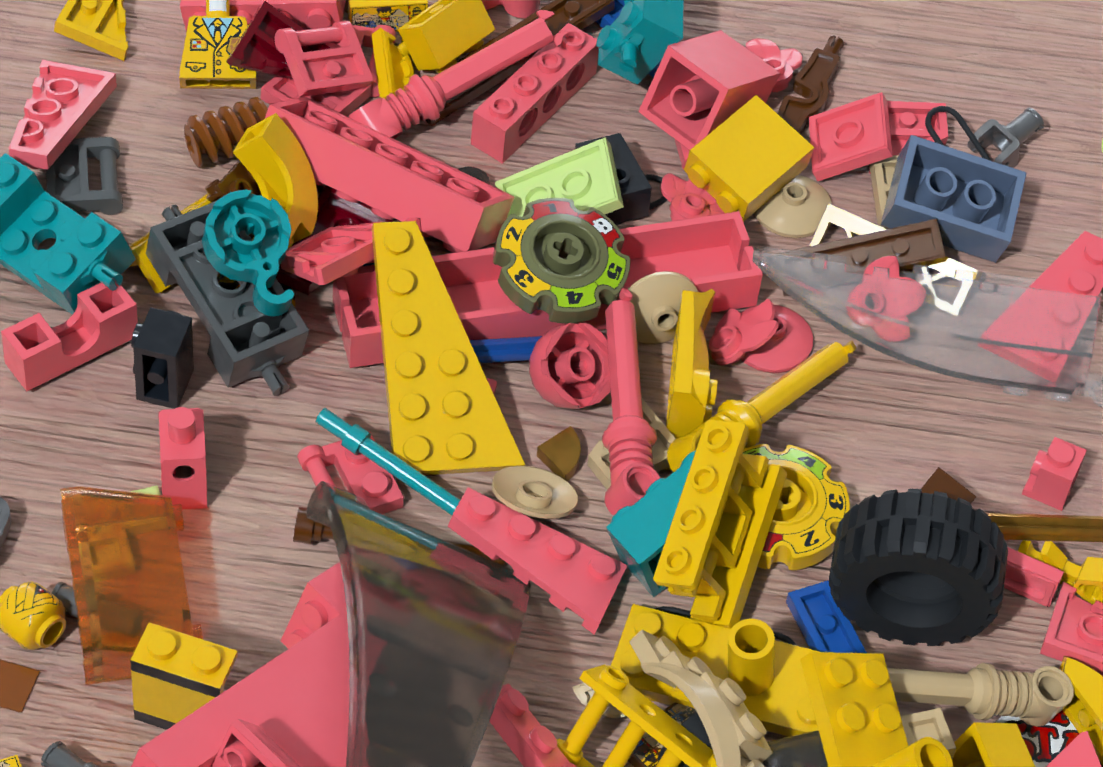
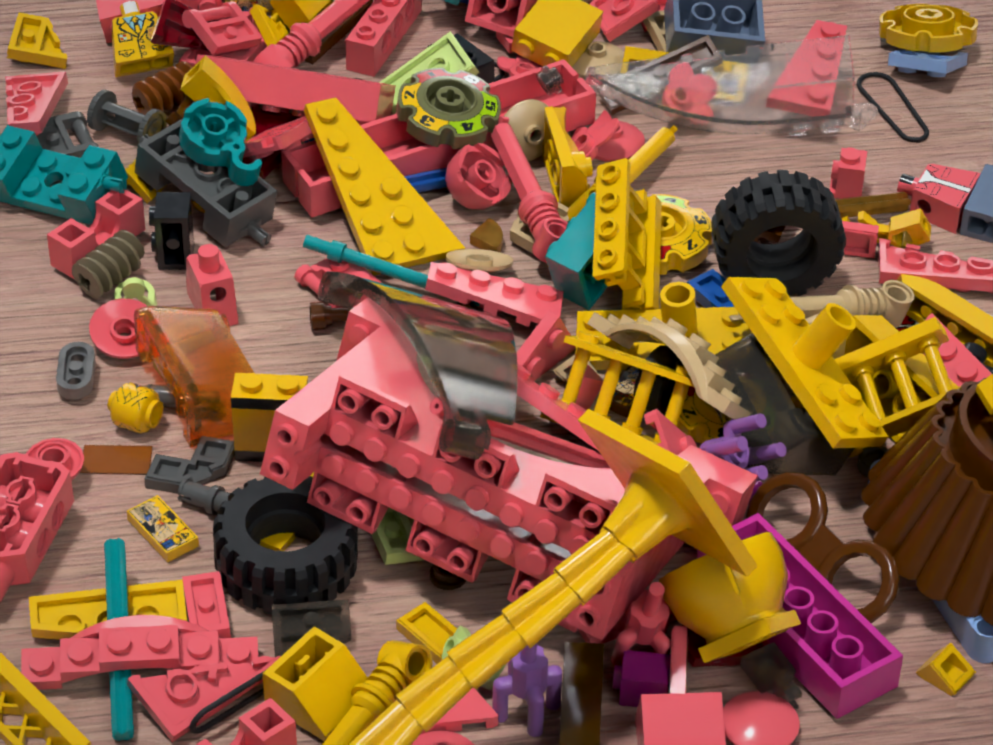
camera: 10 degrees left, 10 degrees down
(45, 472) = (111, 321): none -> coral dish
(68, 383) = (108, 264): none -> dark tan piece
(86, 434) = (135, 288): none -> yellowish green piece
(95, 720) = (208, 463): none -> dark grey tile
(144, 147) = (105, 106): none -> dark grey hose
(565, 656) = (544, 346): none -> coral wing
(606, 731) = (589, 388): none -> coral slope
(707, 245) = (550, 80): none -> clear smoke plate

